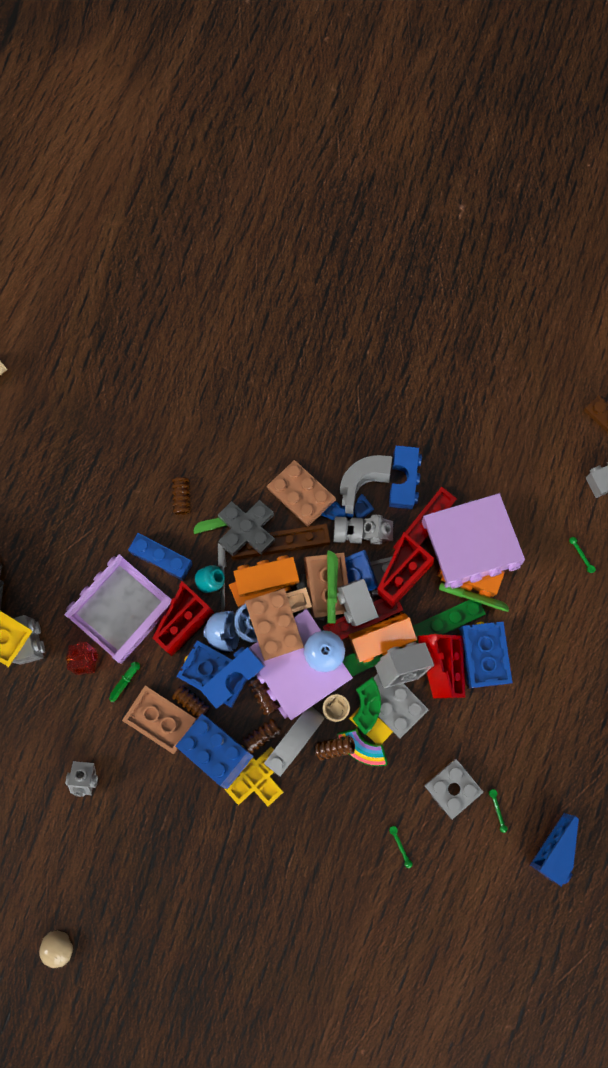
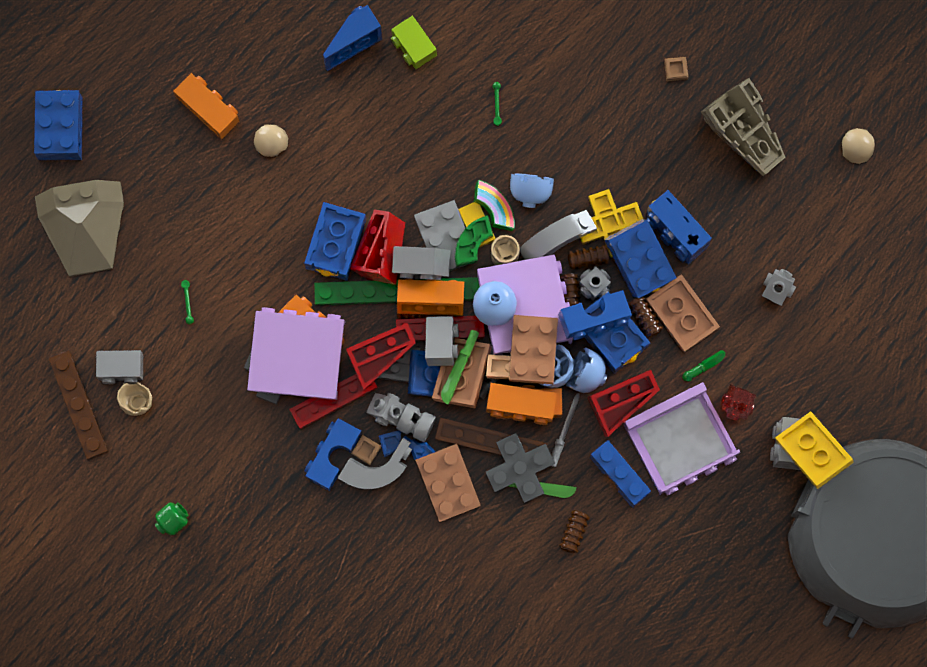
camera: 155 degrees left, 0 degrees up
(168, 921) = (744, 127): none -> dark tan wedge
(192, 794) = (677, 227): none -> blue piece
(209, 579) = (578, 430): teal head -> none
(251, 953) = (676, 69): none -> medium nougat tile
(253, 716) = (594, 291): none -> light grey brick
(335, 747) = (521, 215): reddish brown piece -> none
(337, 776) = (531, 189): none -> light blue cylinder
(379, 494) = (366, 450): none -> medium nougat tile
(439, 791) = (418, 145): light grey piece -> none
(461, 592) = (305, 291): bright green piece -> none
(493, 793) = (387, 114): green hinge -> none
(500, 872) = (413, 42): none -> lime piece
(508, 375) = (171, 518): none -> green head
(582, 725) = (270, 140): none -> tan hair
(585, 455) = (134, 399): none -> tan hair

